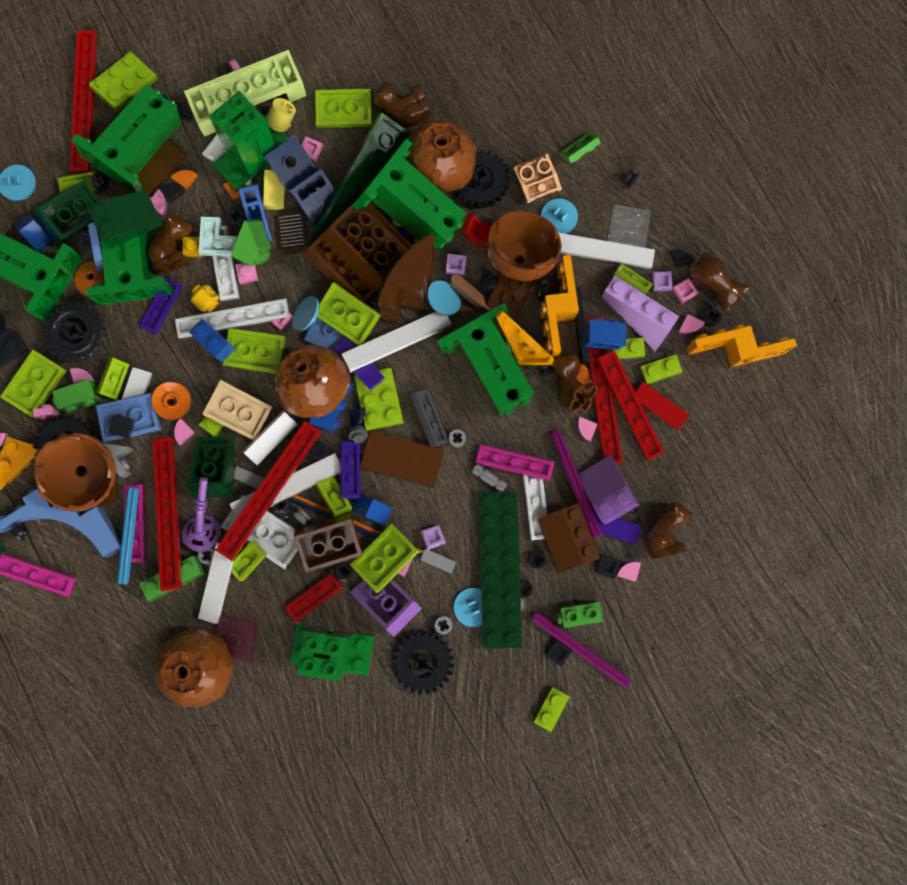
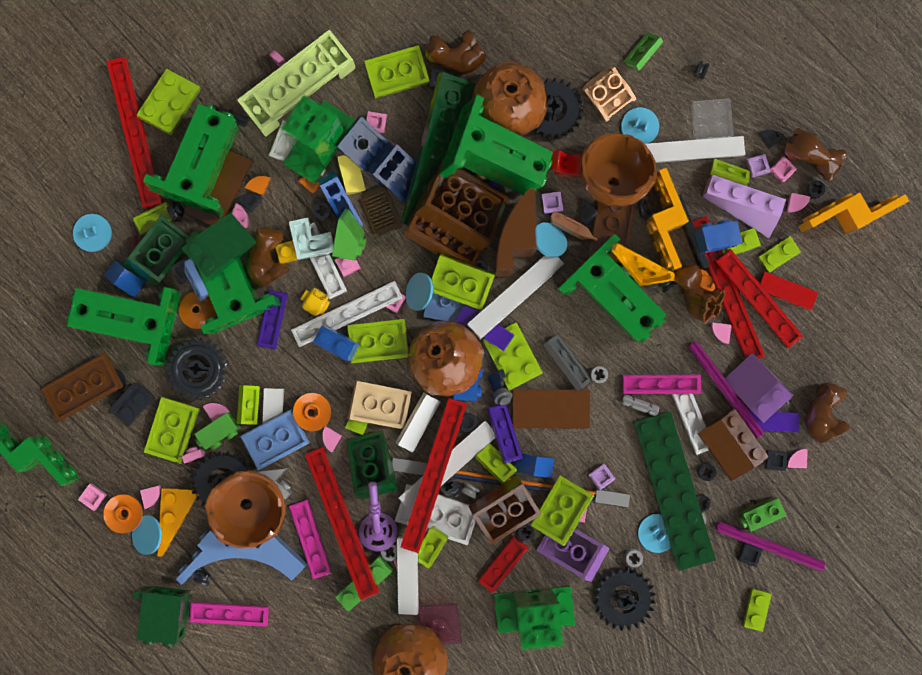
camera: 15 degrees left, 5 degrees up
(122, 426) = (273, 450): black tile -> none
(127, 536) = (309, 555): dark azure axle -> none
(280, 115) = (337, 96): light yellow piece -> none

